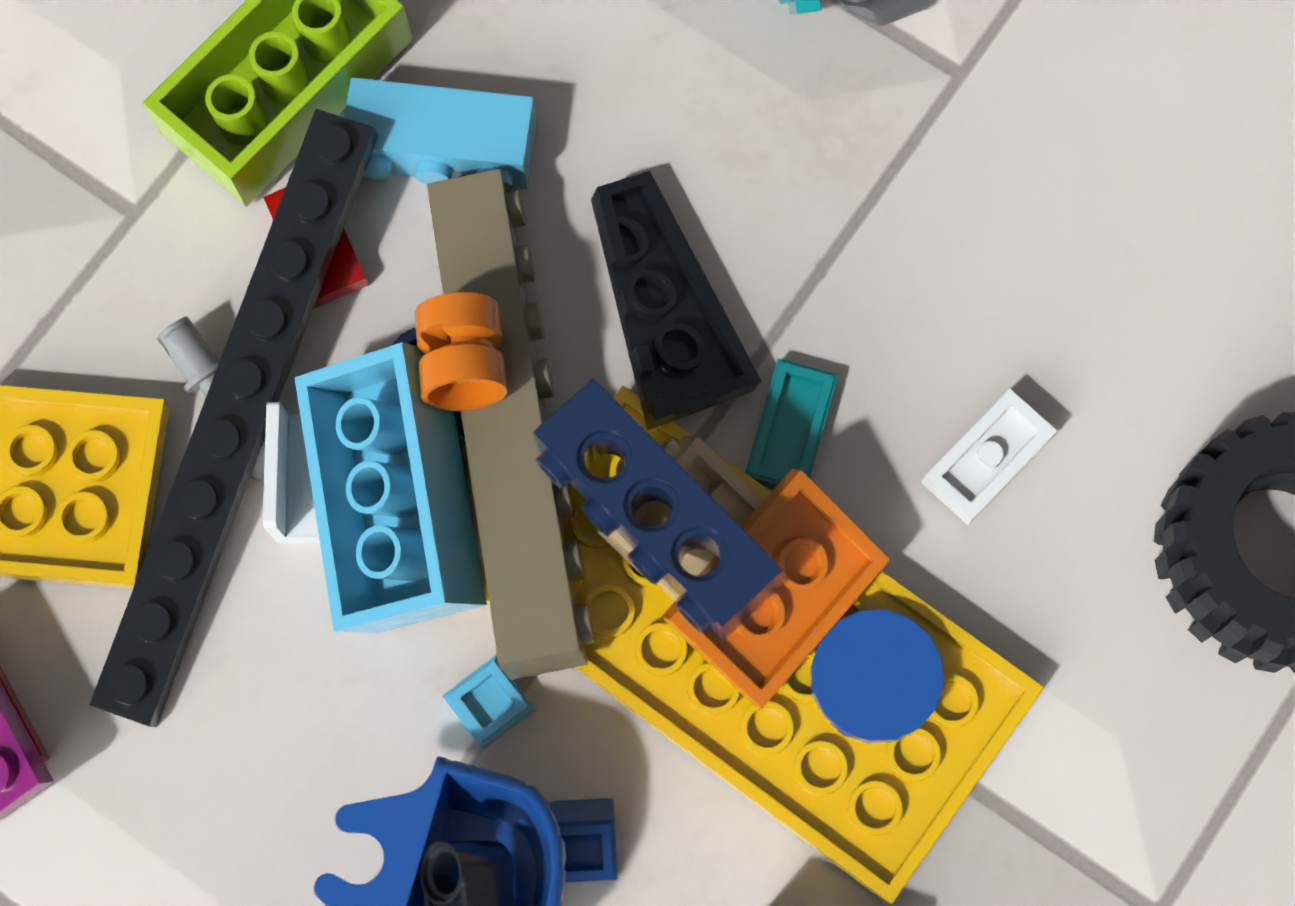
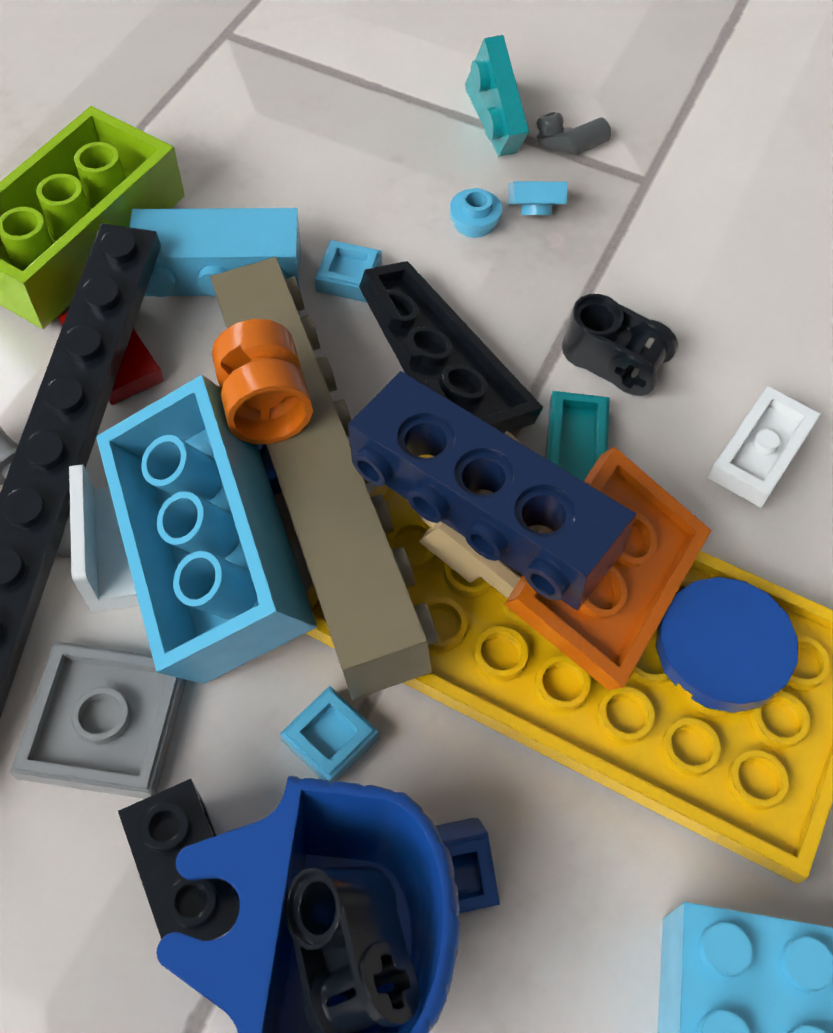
camera: 15 degrees left, 15 degrees down
(278, 657) = (99, 722): none -> light grey tile
(326, 782) = (156, 834): none -> black brick
(583, 165) = (343, 269): none -> medium azure tile
(742, 118) = (475, 212): none -> medium azure plate
(816, 93) = (537, 196): none -> medium azure plate
(865, 315) = (614, 341): none -> black piece

